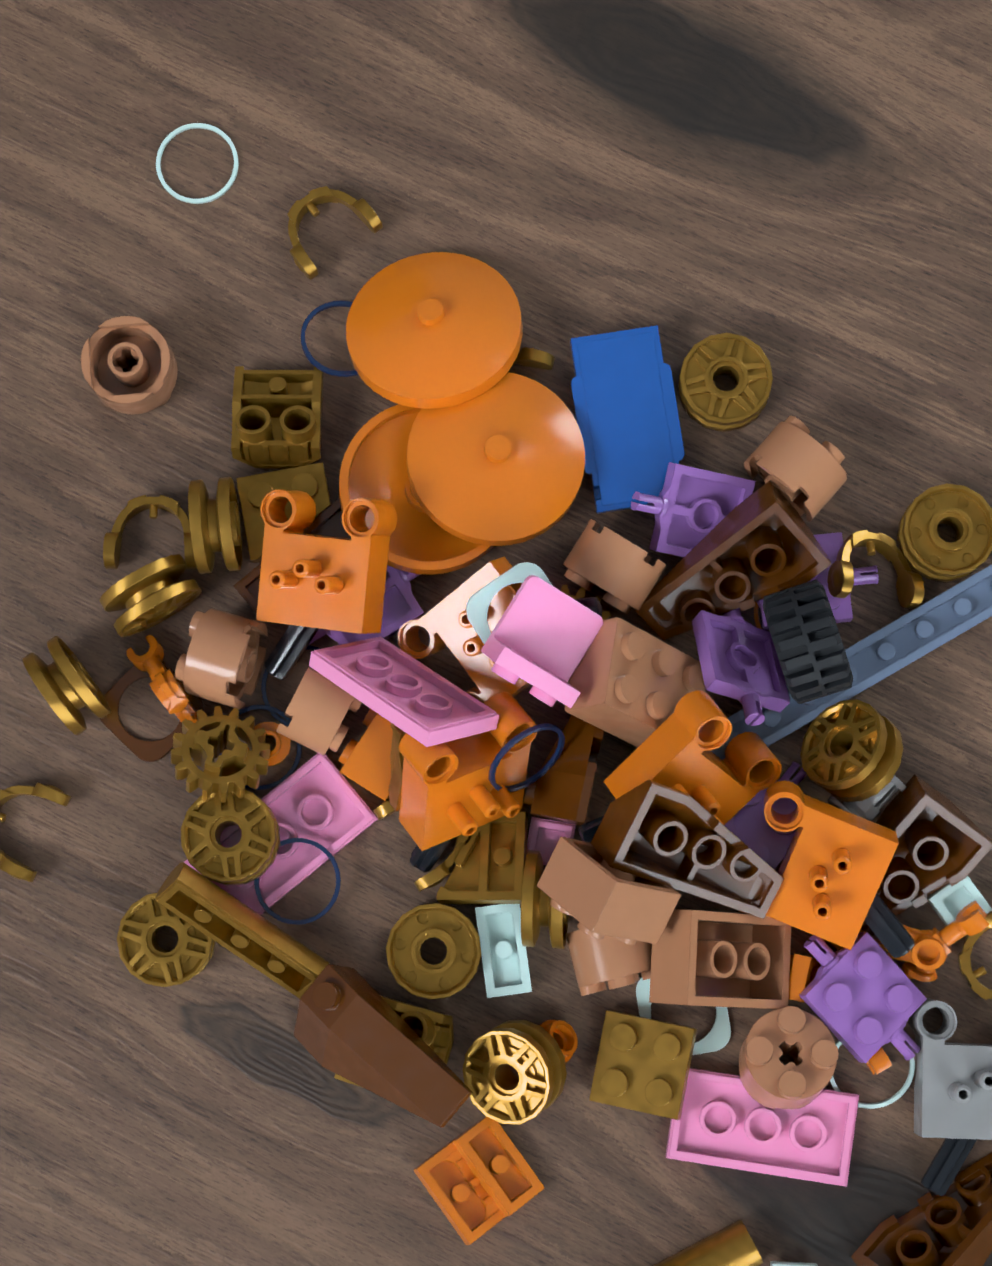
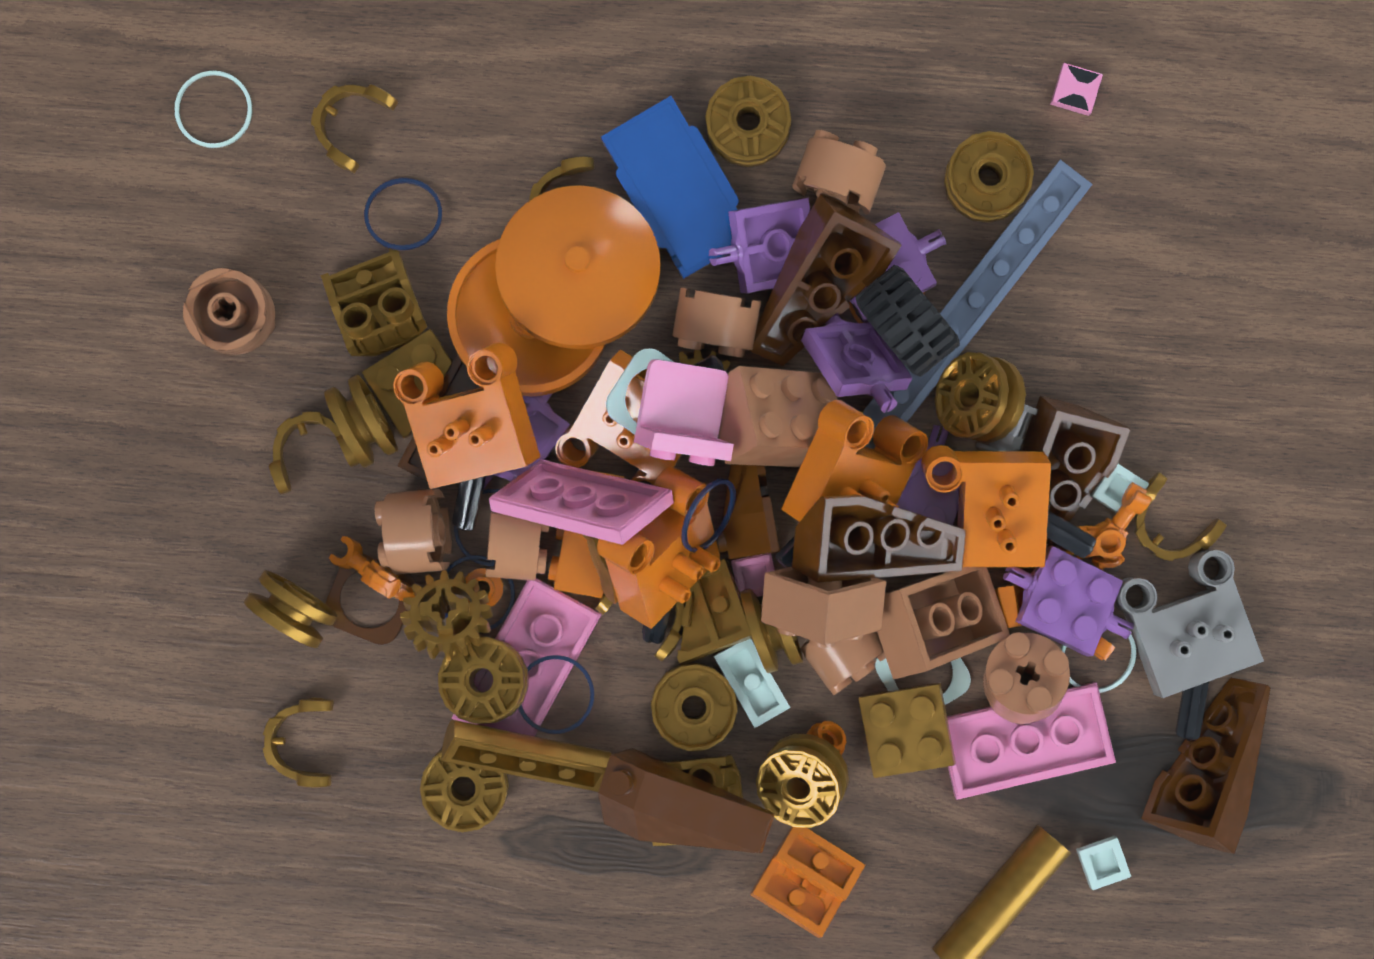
camera: 20 degrees left, 5 degrees up
(150, 595) = (330, 503): pearl gold wheel -> none
(434, 330) = (480, 176): orange dish -> none
(841, 574) = (912, 249): pearl gold piece -> none

